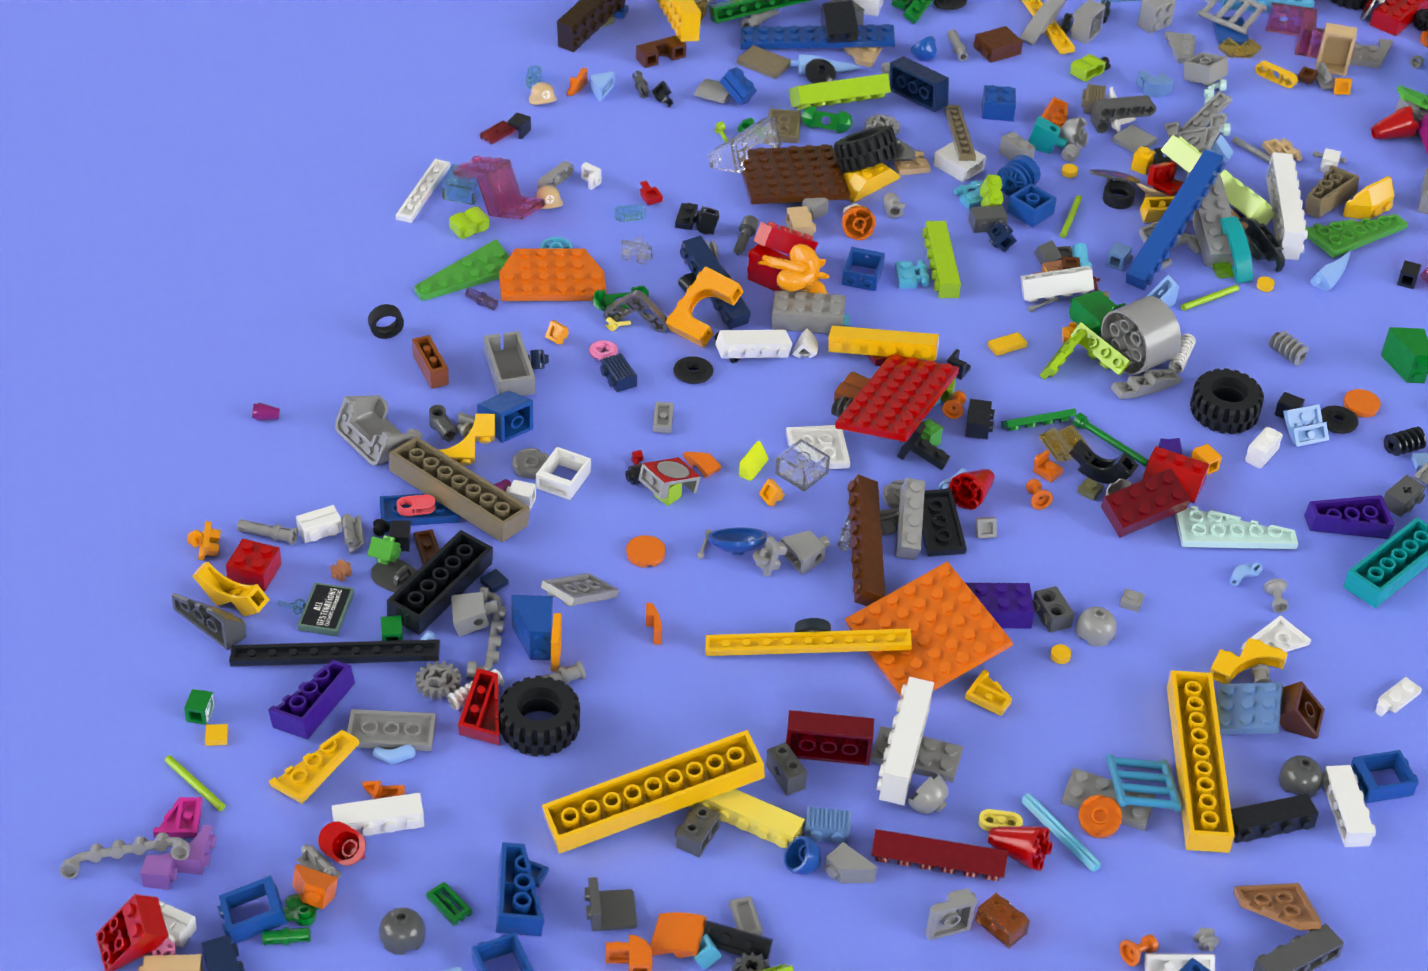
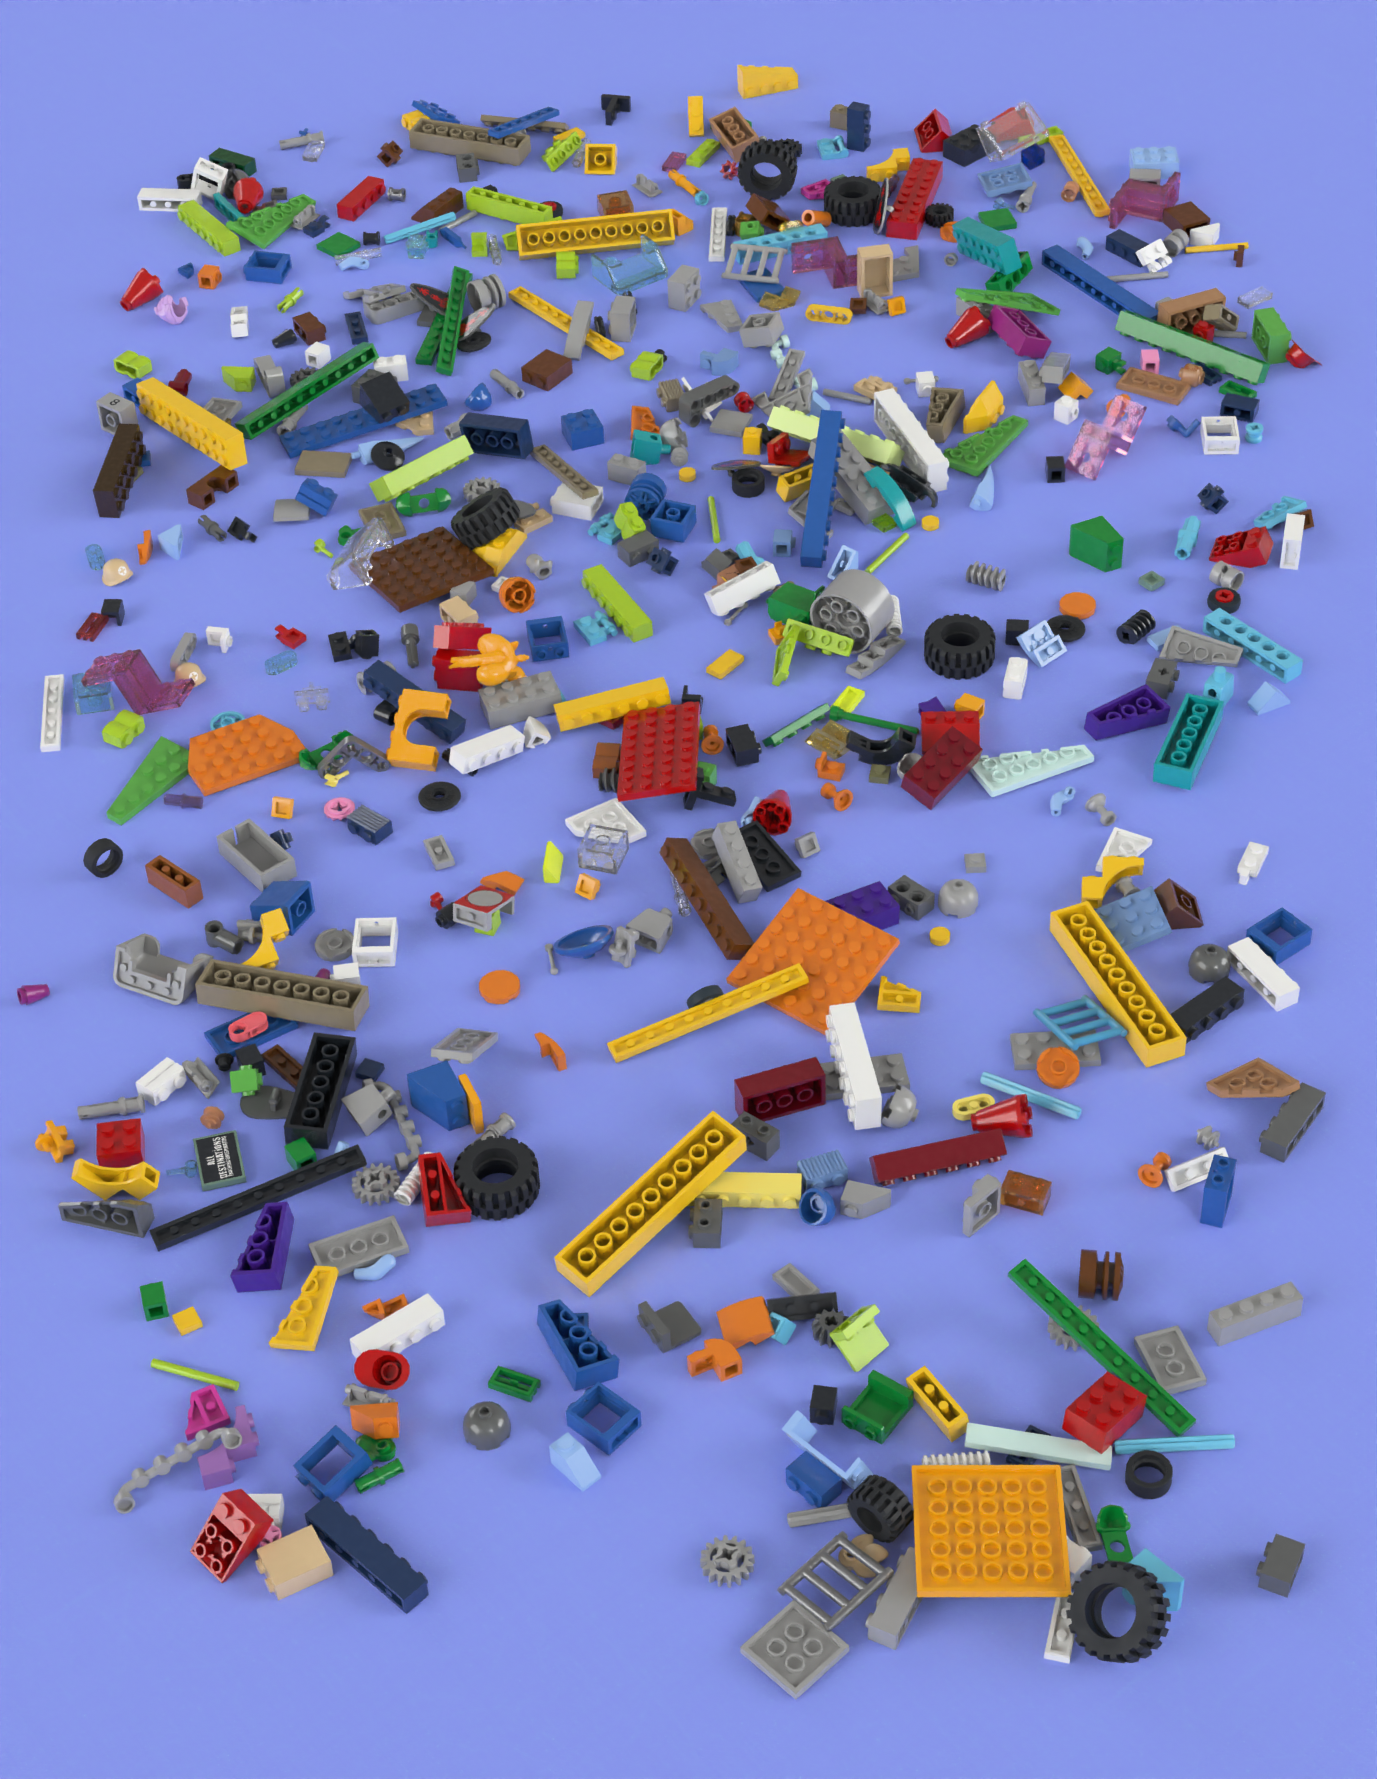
camera: 20 degrees left, 0 degrees up
(1100, 413) = (849, 699): none -> neon yellow tile
(1158, 127) = (743, 402): none -> red wheel

